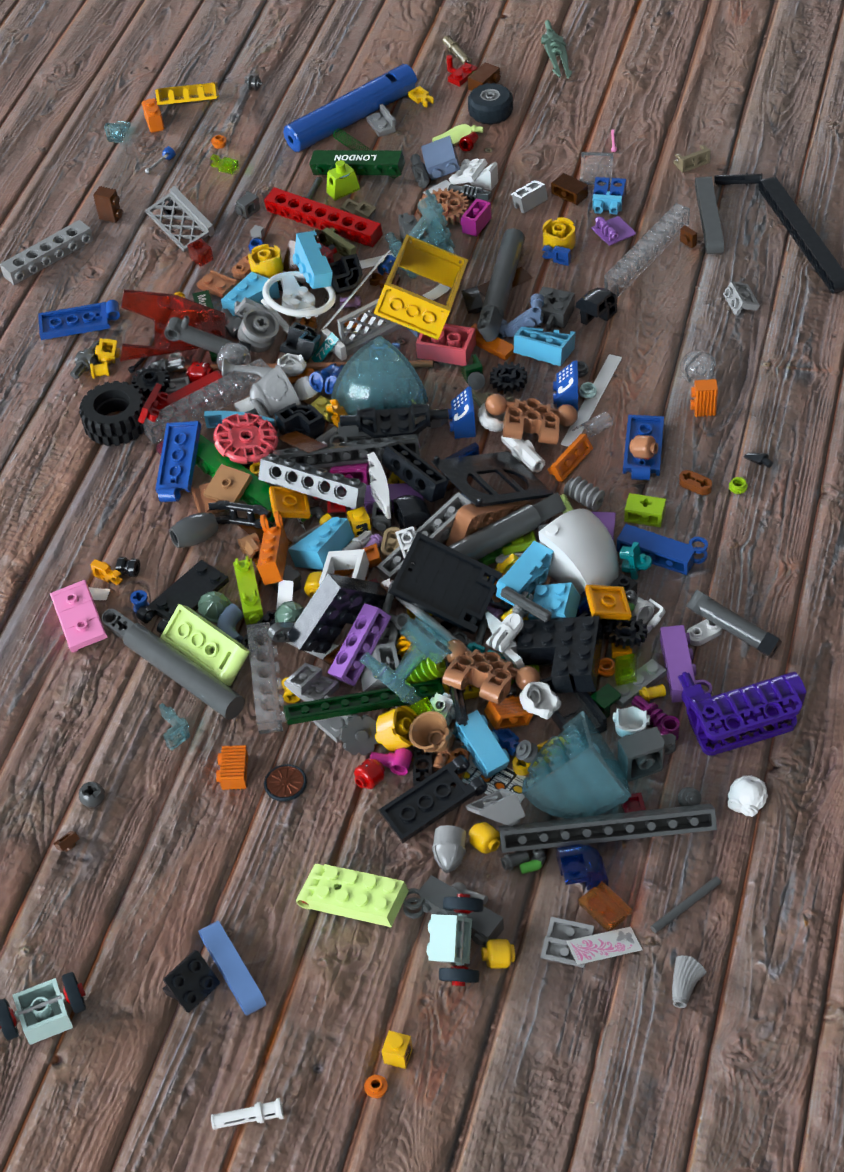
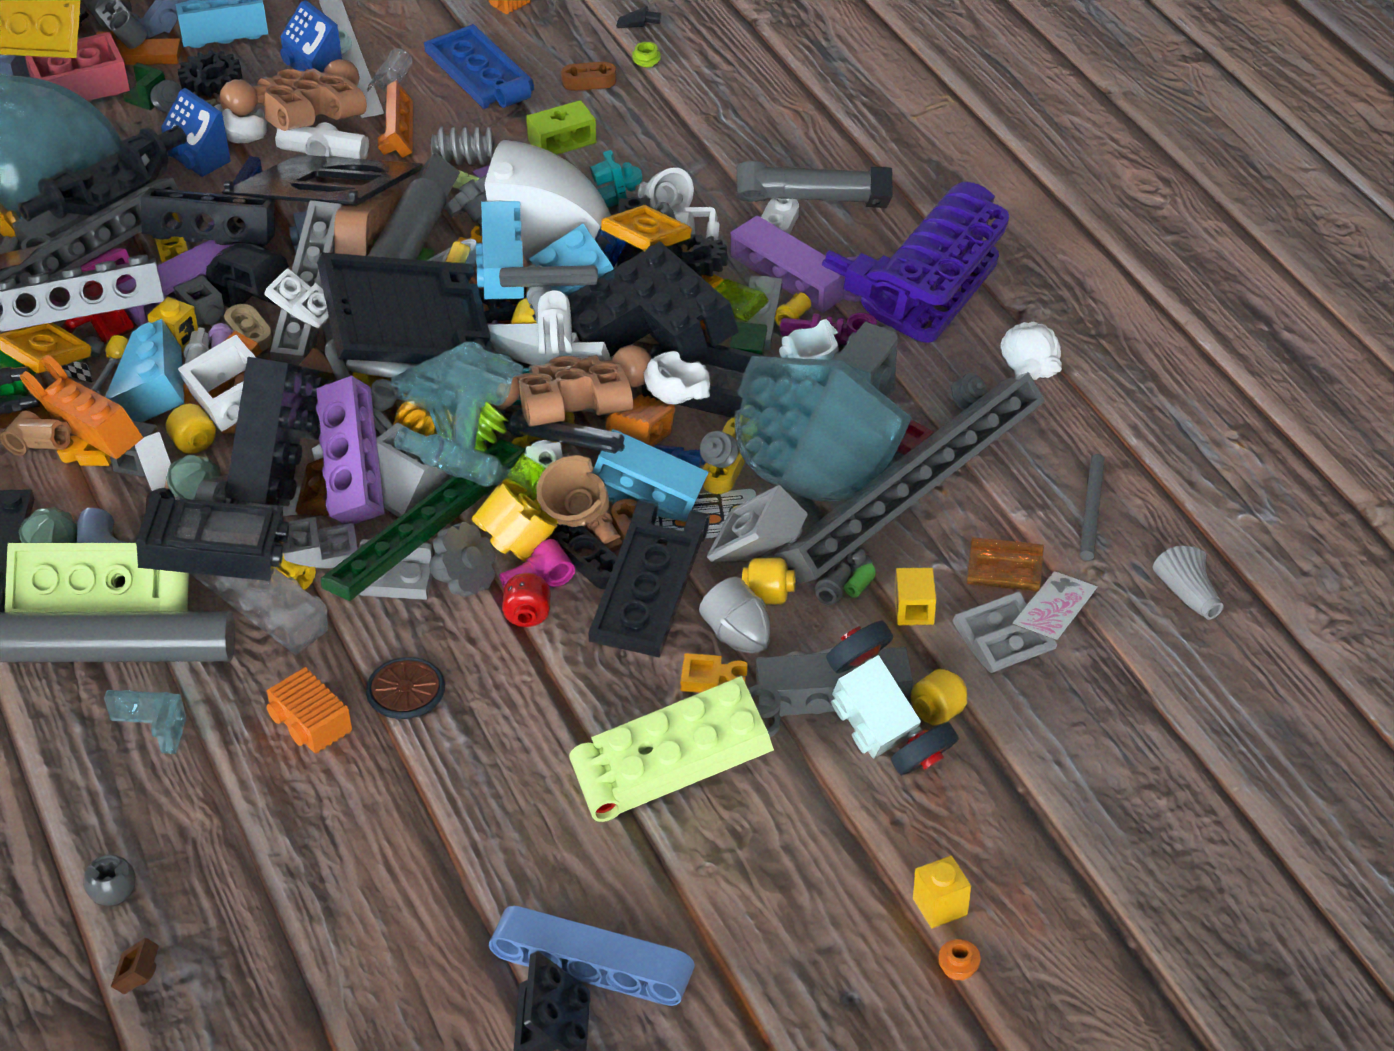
camera: 45 degrees left, 5 degrees down
(248, 590) = (86, 485): lime brick -> none
(257, 654) = (211, 538): none -> black door
(379, 485) = (174, 260): white slope -> none
(411, 866) = (707, 671): none -> light orange plate
(520, 544) = (443, 236): lime tile -> none
(543, 893) = (915, 596): none -> yellow brick
(581, 864) = (929, 532): clear blue brick -> none
(643, 447) = (491, 59): nougat head -> none
(654, 584) = (669, 187): none -> white helmet
(663, 550) = (648, 152): blue hinge -> none

